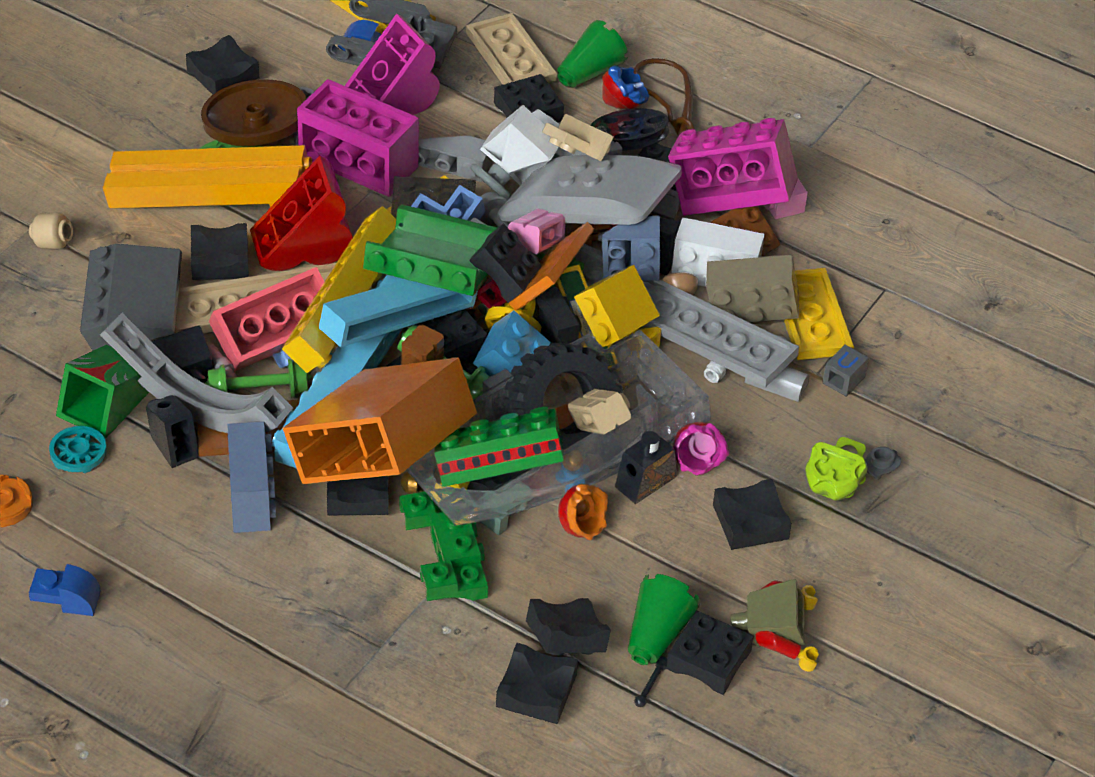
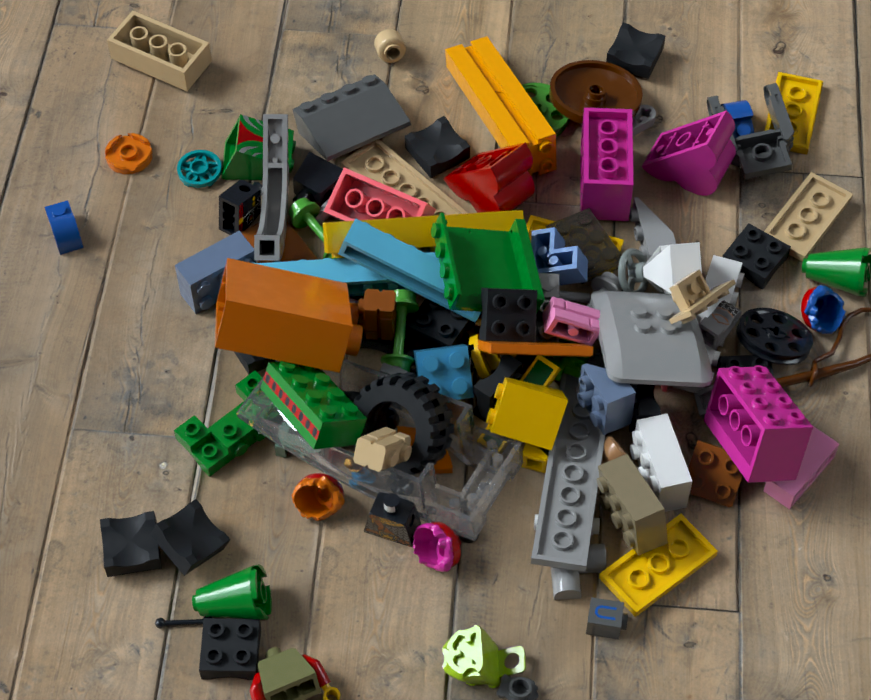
camera: 65 degrees right, 10 degrees up
(751, 515) = (391, 616): black brick -> none

